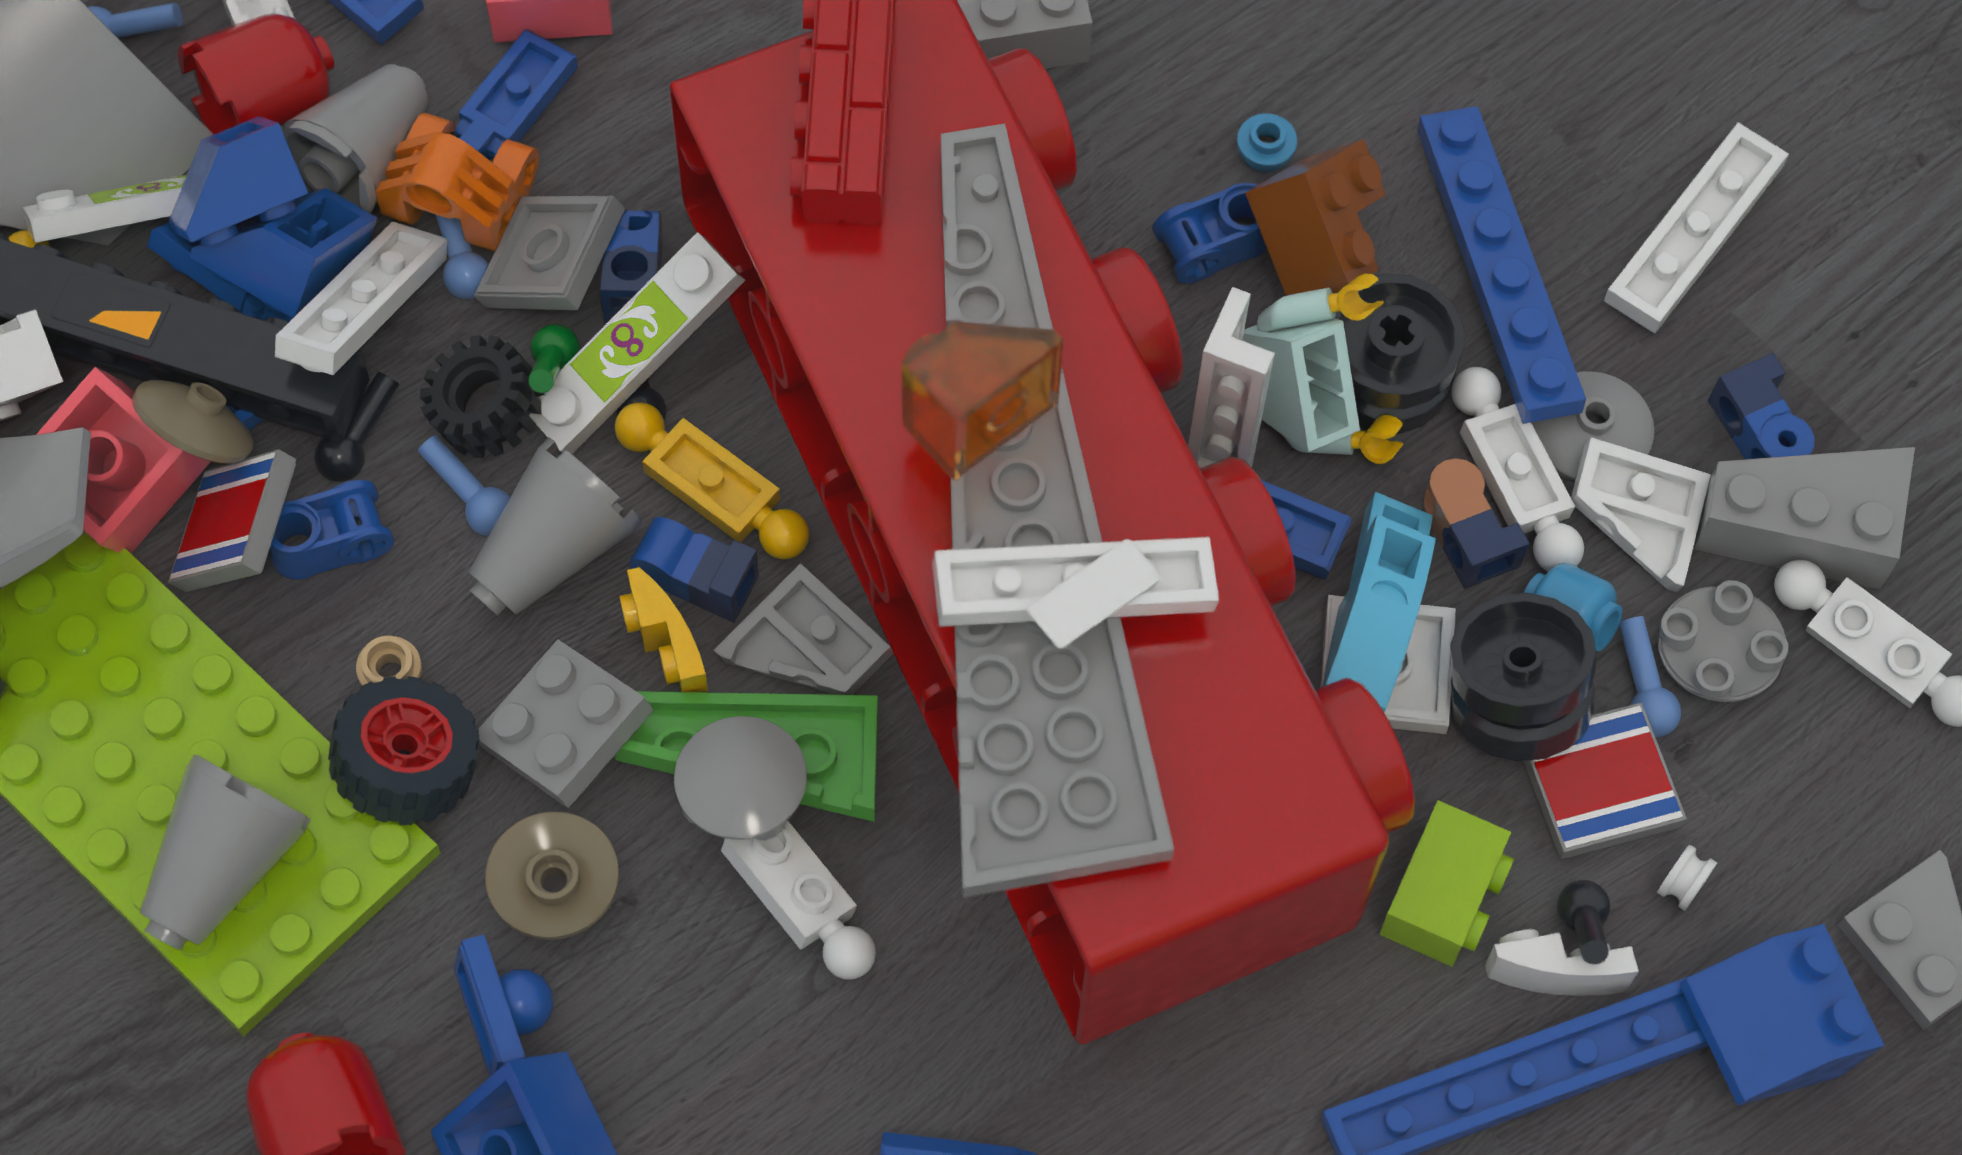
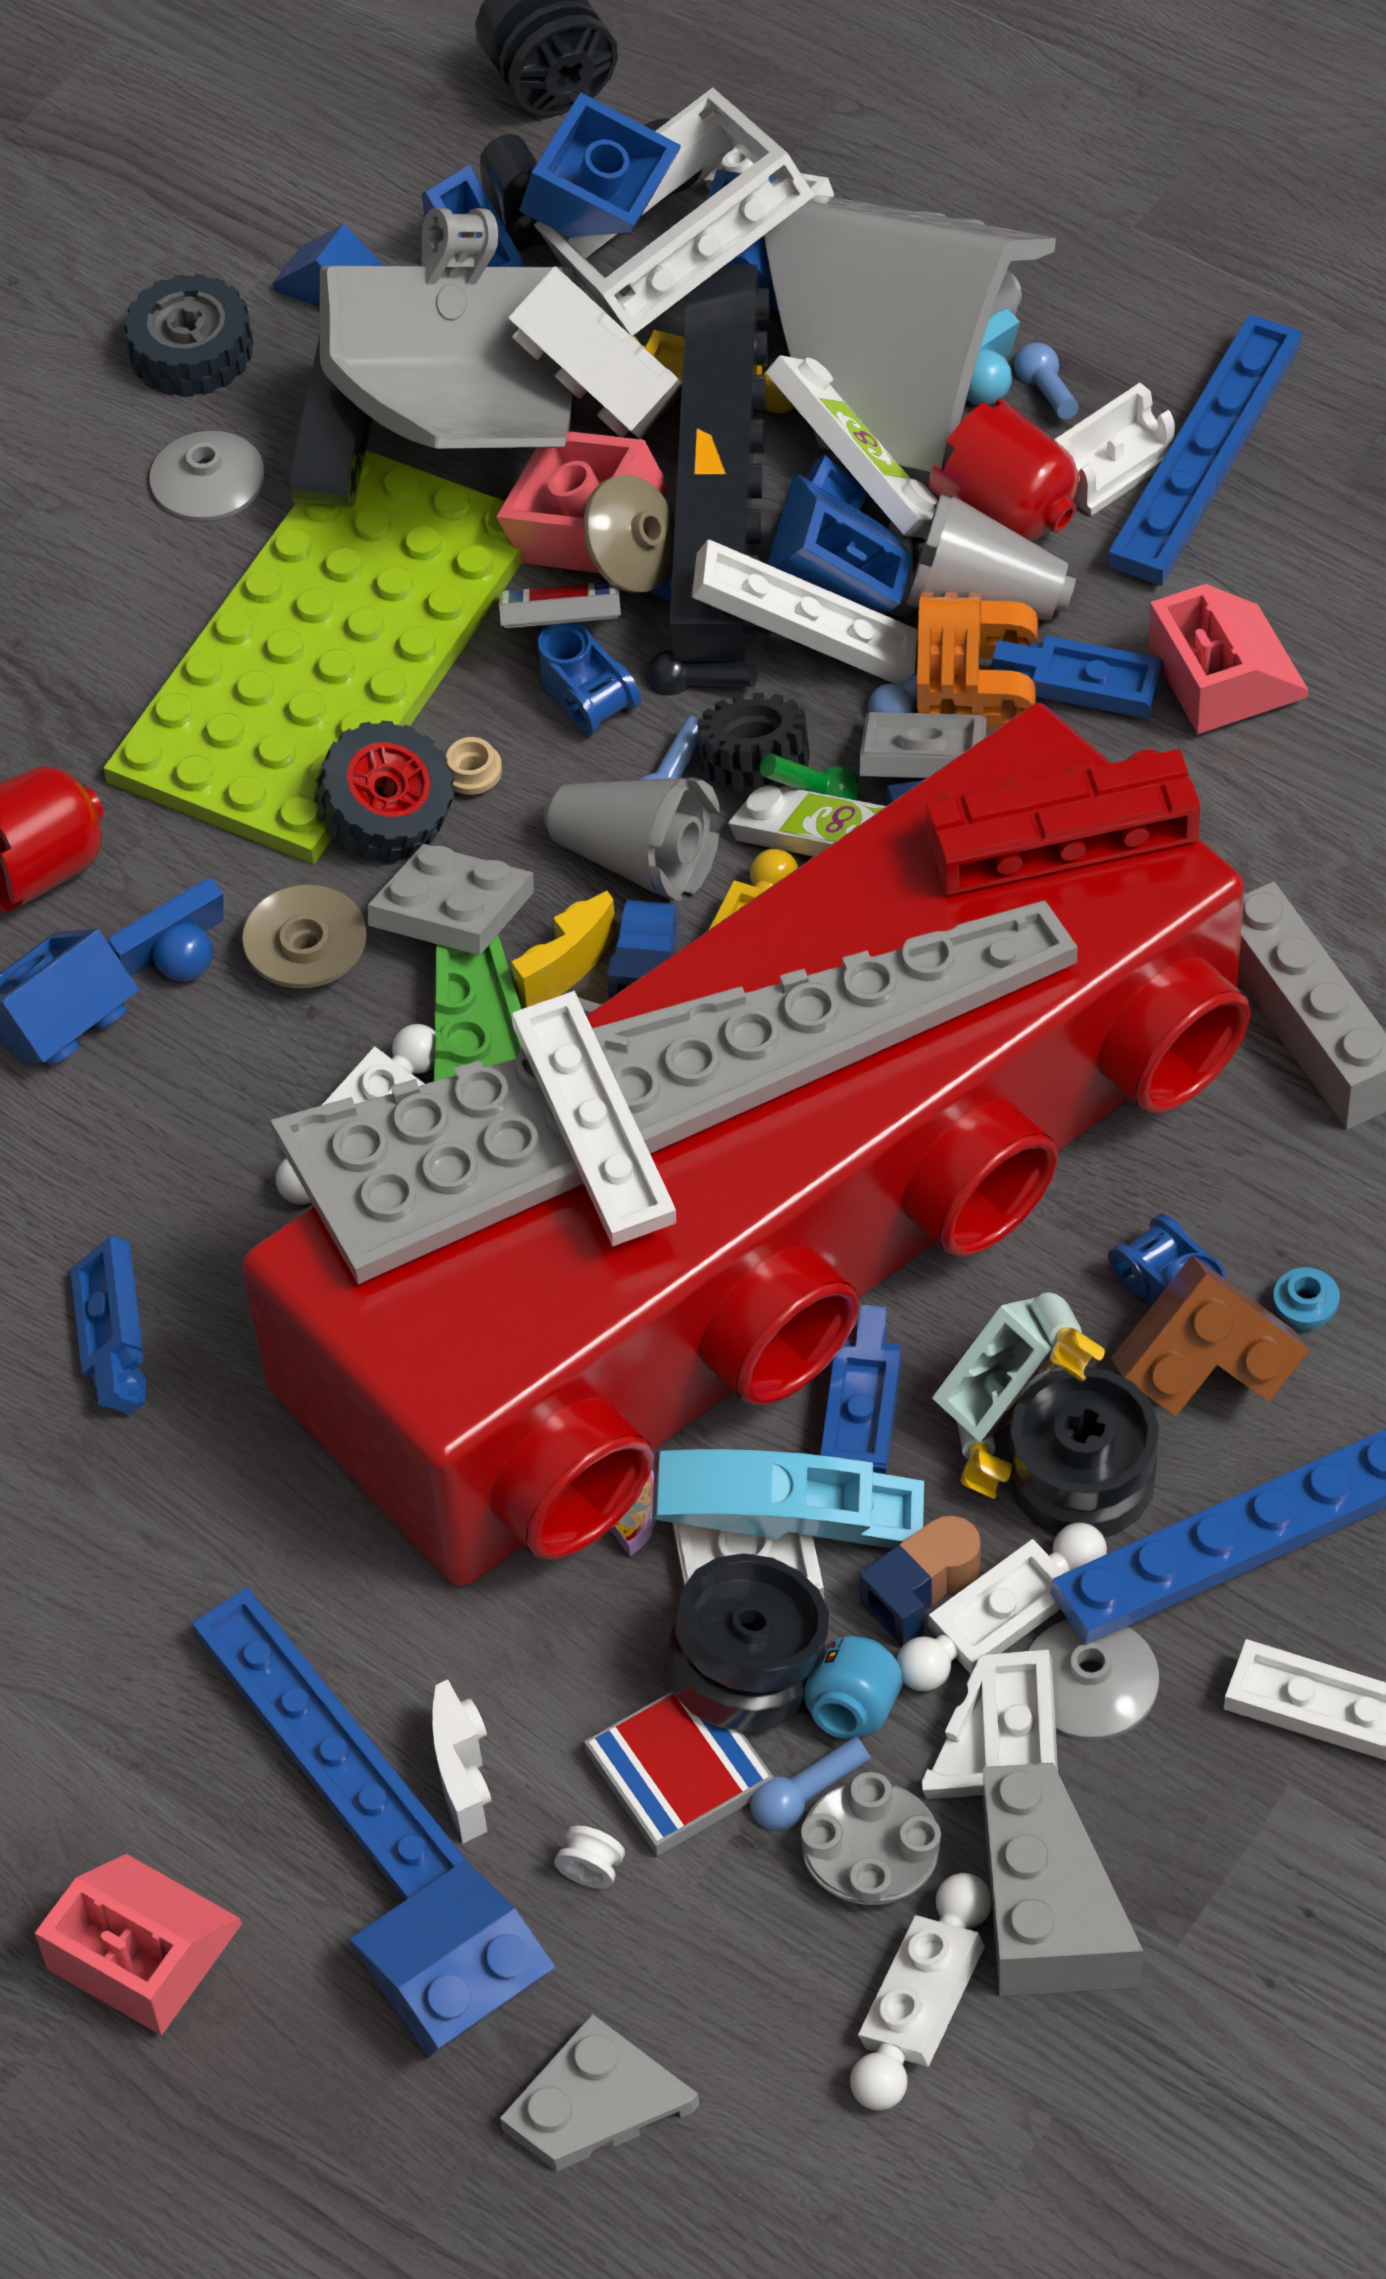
camera: 80 degrees right, 10 degrees down
(214, 852) = (240, 677): light grey cone -> none
(235, 178) = (869, 476): blue slope -> none
(740, 778) = (426, 1031): light grey dish -> none
(977, 389) = (733, 967): clear orange slope -> none
(1093, 593) = (578, 1127): white sticker -> none
(1229, 389) = (926, 1268): white fence -> none
(1446, 883) = (514, 1641): lime brick -> none
(1585, 909) = (527, 1770): black bar -> none
(1758, 414) = (1150, 1821): leg -> none

